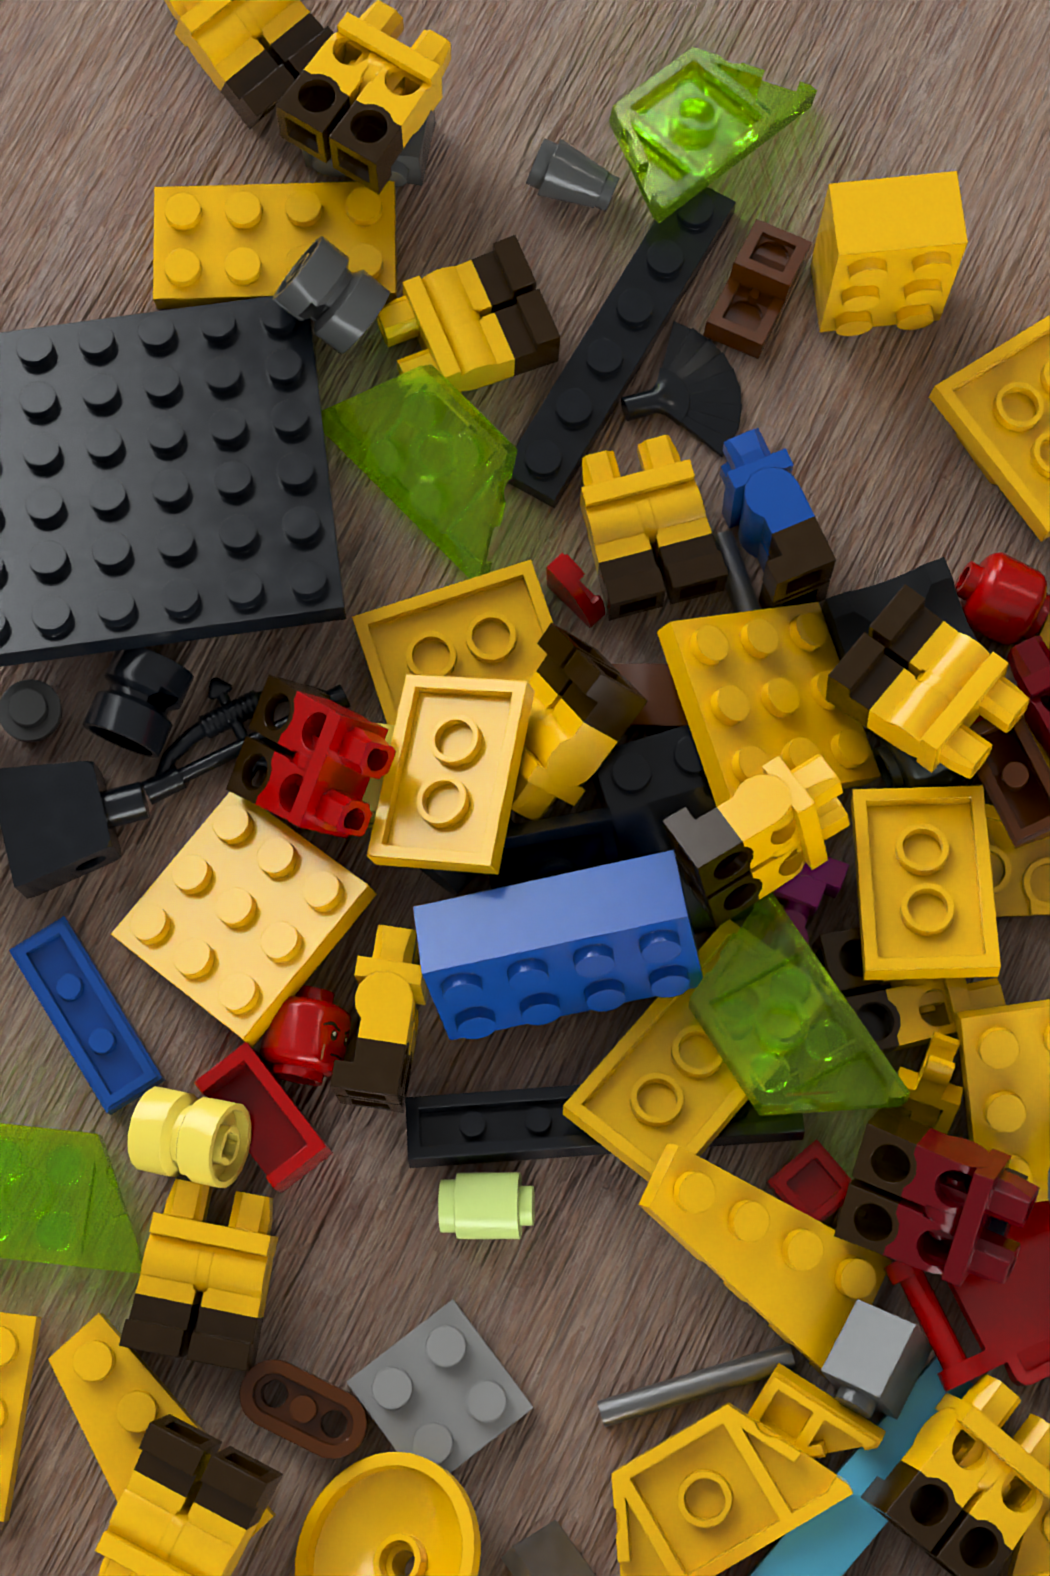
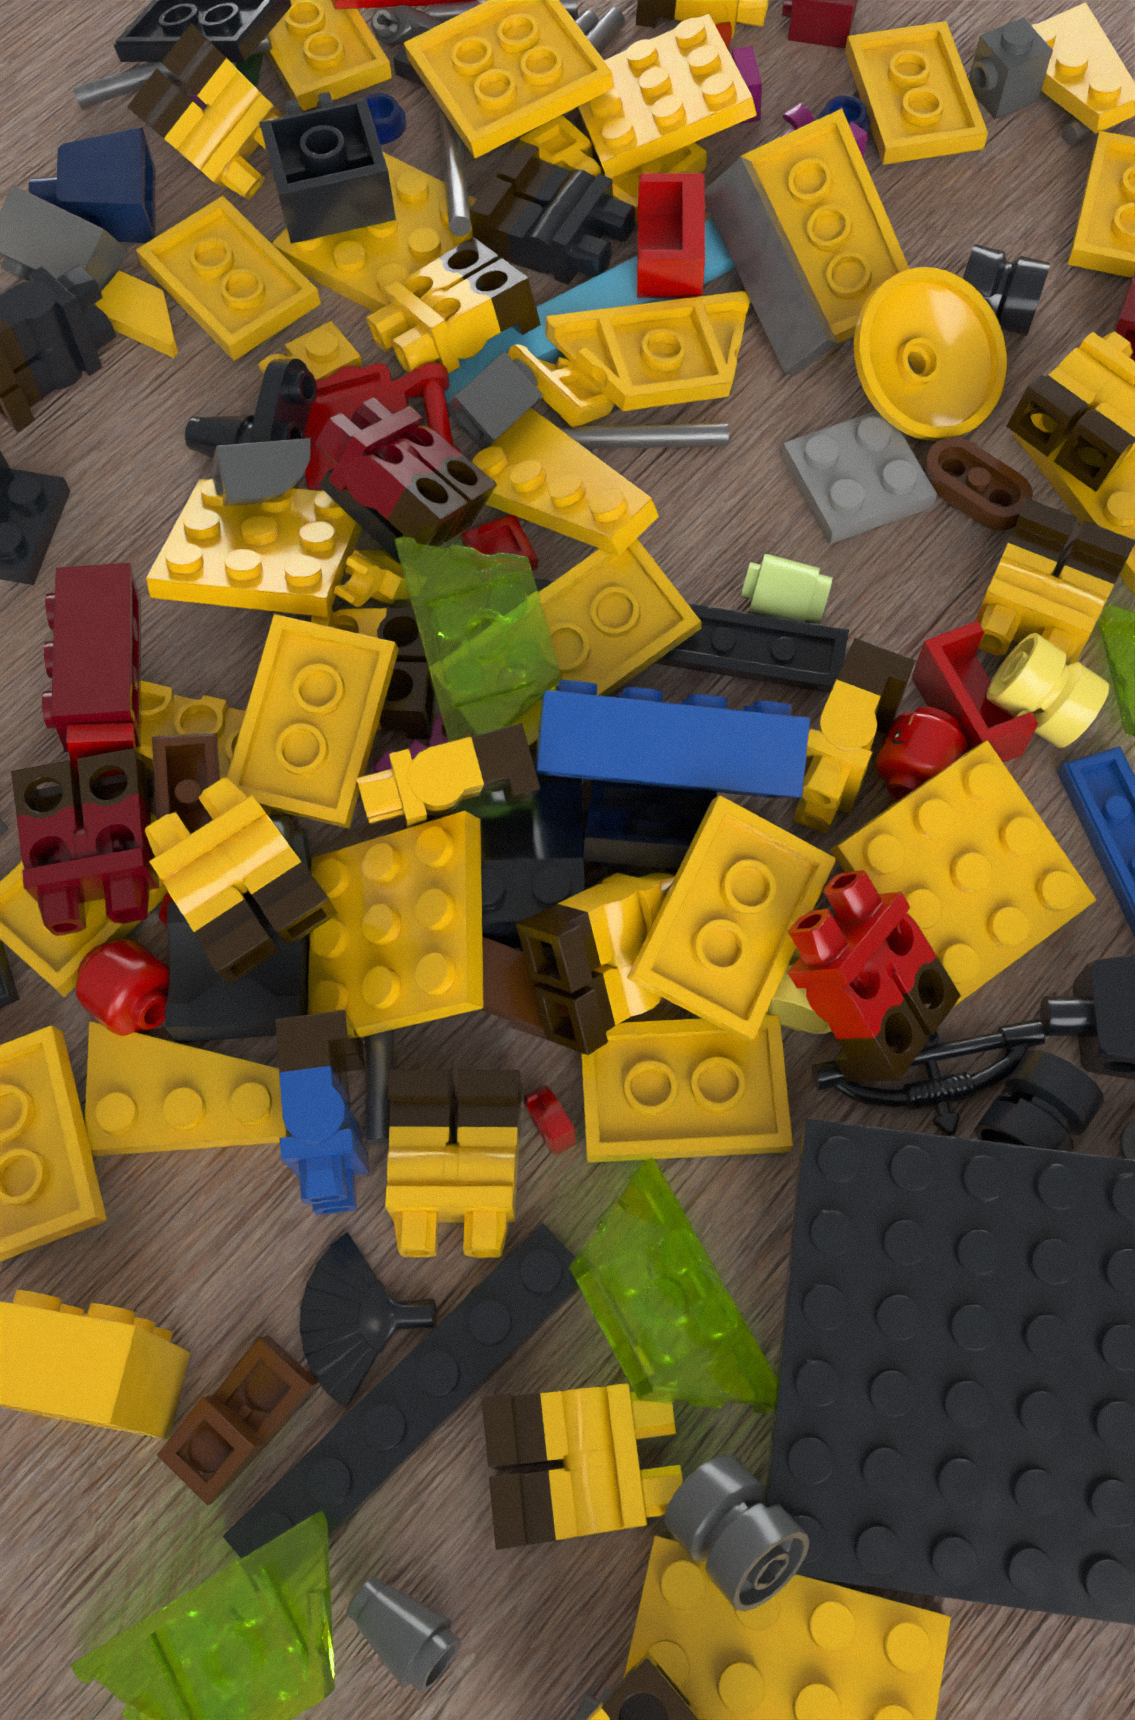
camera: 165 degrees left, 10 degrees down
(917, 521) = (175, 1097): none -> yellow wing

